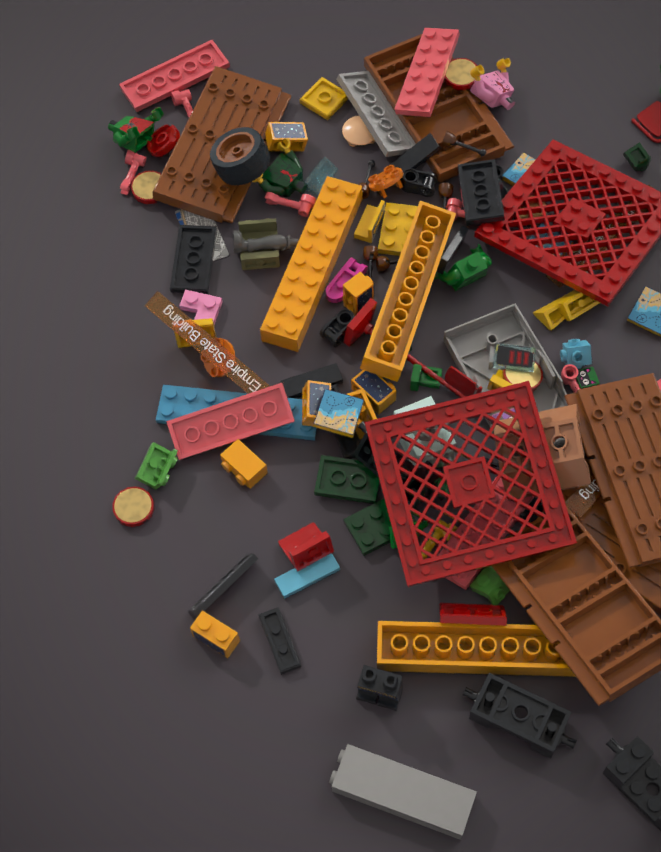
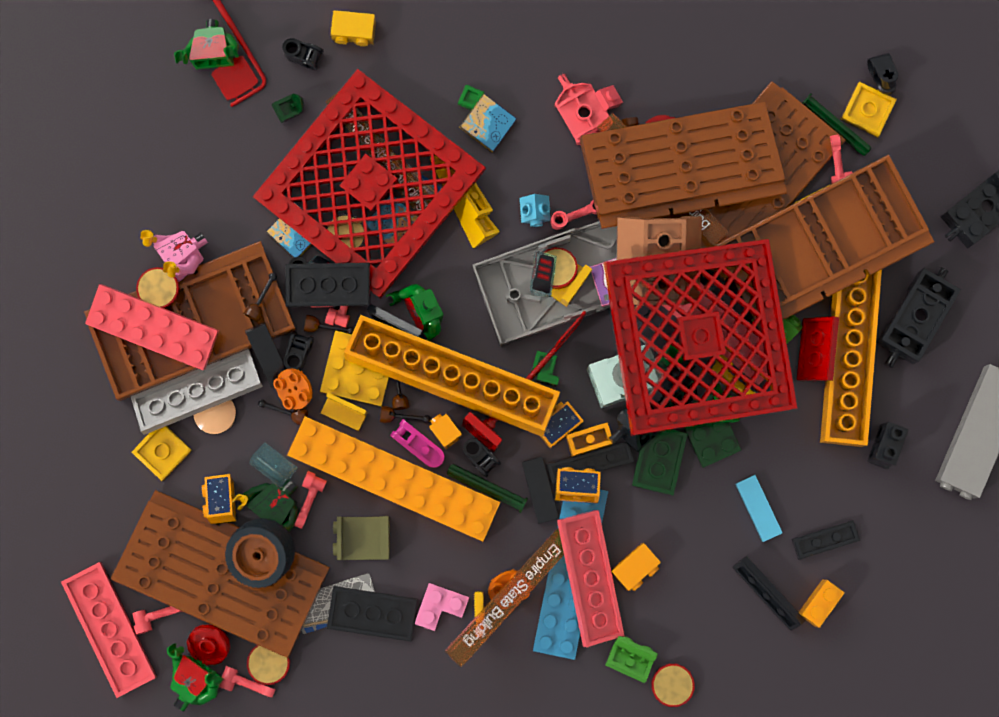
camera: 90 degrees left, 20 degrees up
(271, 242) = (366, 534): dark grey piece -> none
(306, 546) = (732, 508): red bracket -> none
(310, 339) = (487, 487): none -> dark green axle
(338, 413) = (598, 462): tile -> none
(587, 378) = (560, 202): tile -> none

